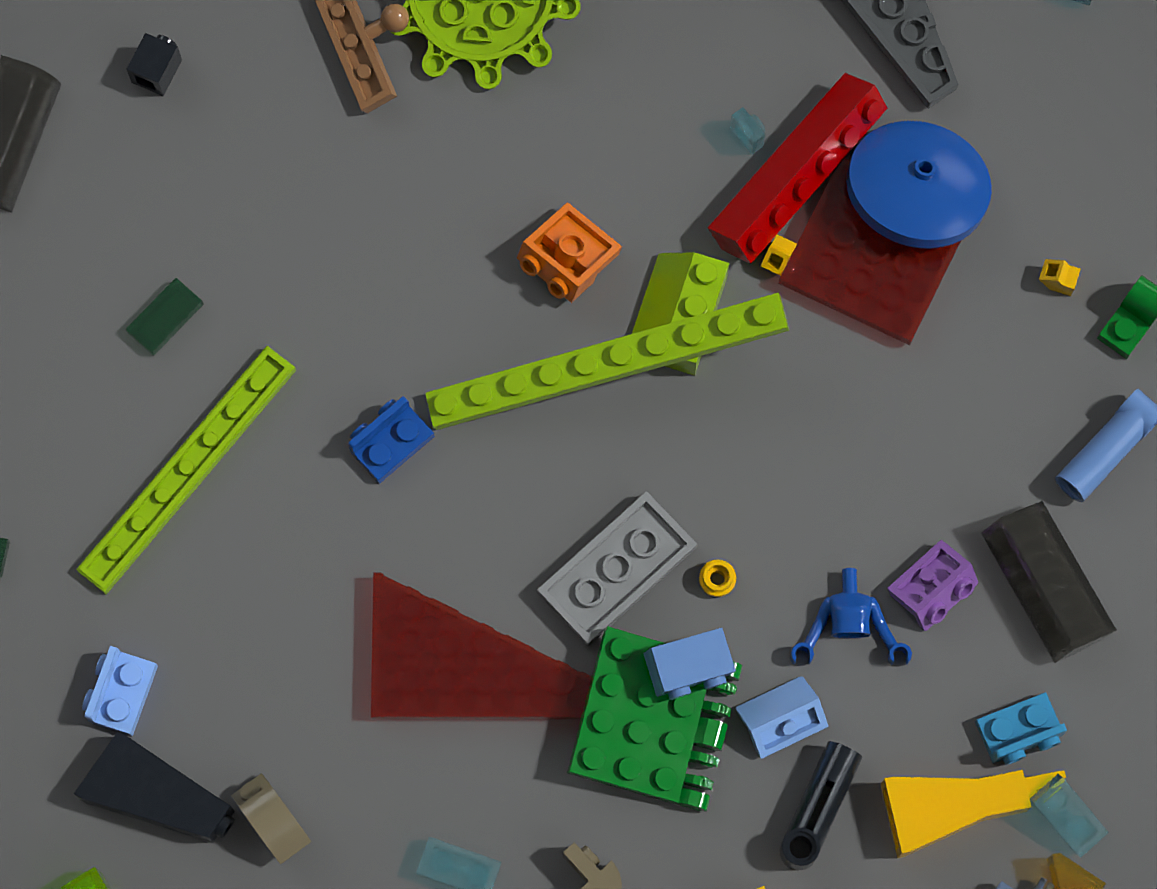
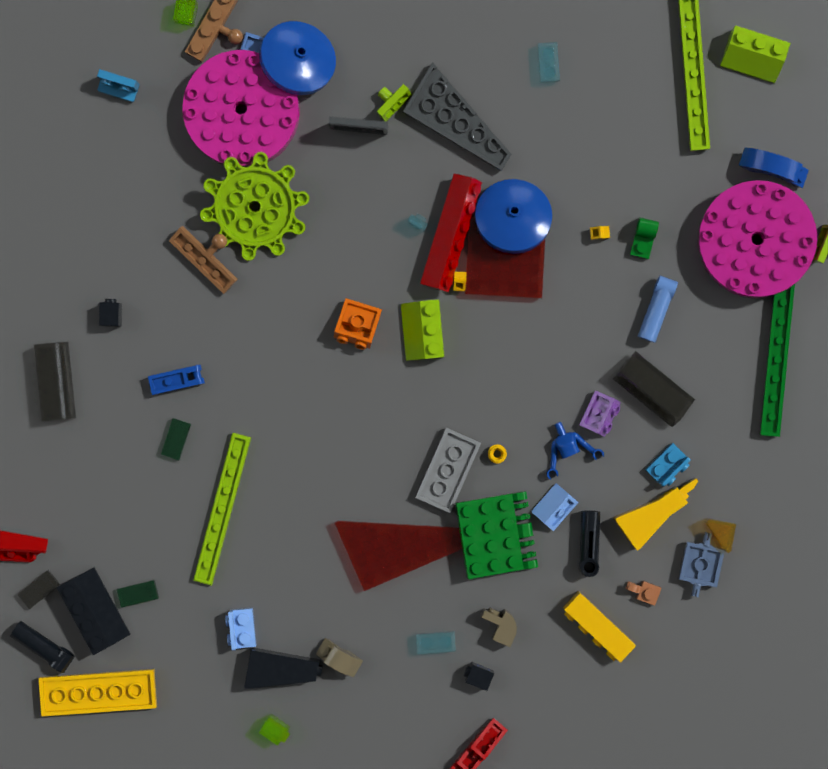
camera: 25 degrees left, 15 degrees up
(212, 216) = (175, 379): none -> blue plate
(389, 439) = (313, 453): blue bracket -> none
(607, 361) = (401, 374): lime plate -> none
(690, 662) = (503, 505): medium blue brick -> none
(1069, 815) = (706, 498): clear light blue plate -> none

